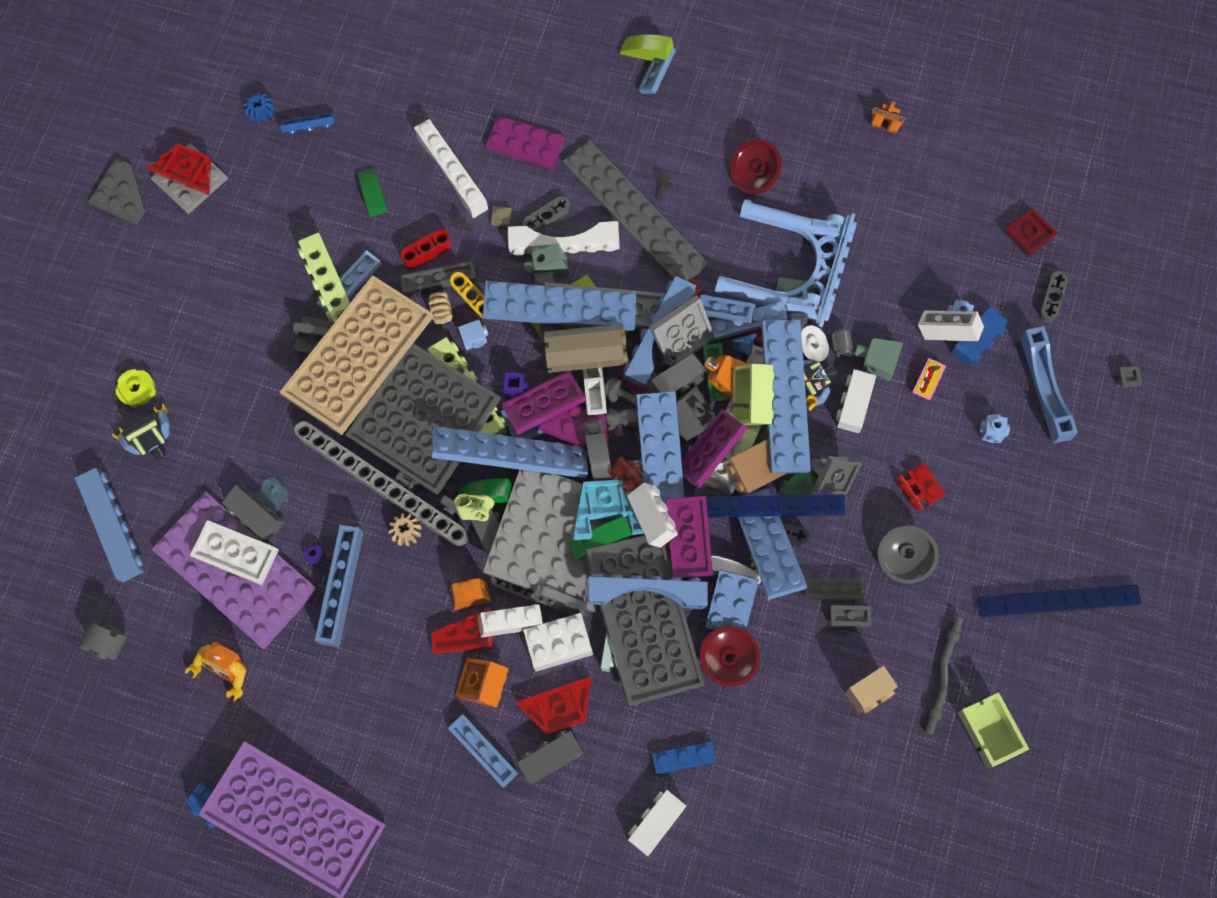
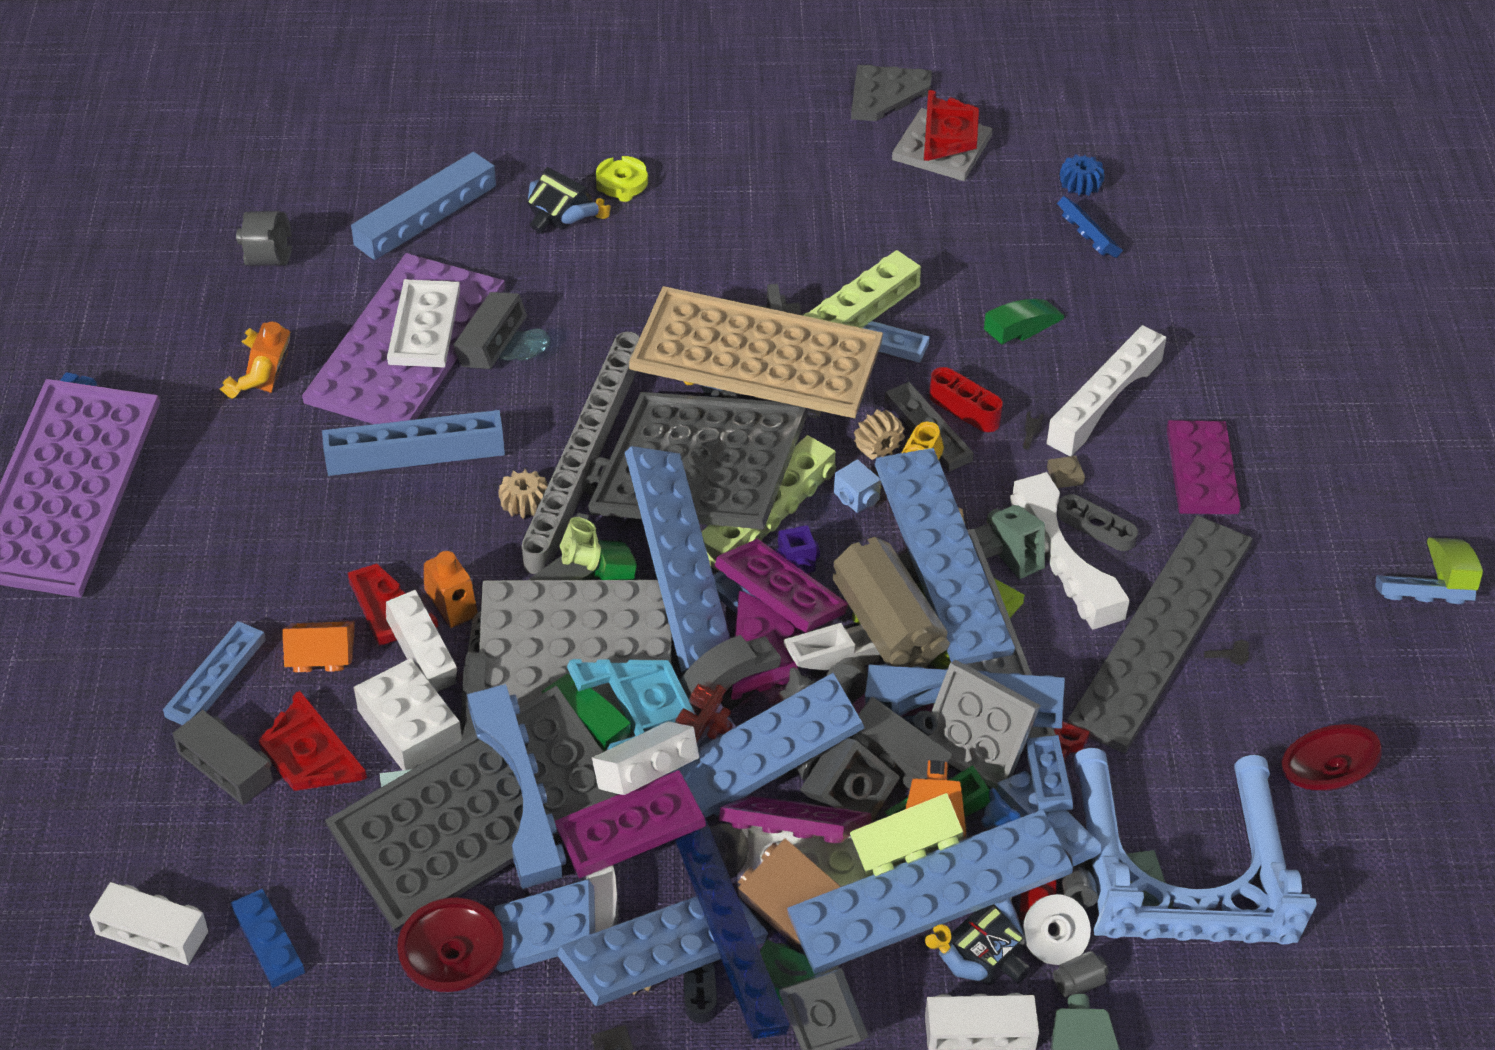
camera: 65 degrees right, 25 degrees down
(314, 559) = (454, 407): dark purple plate -> none

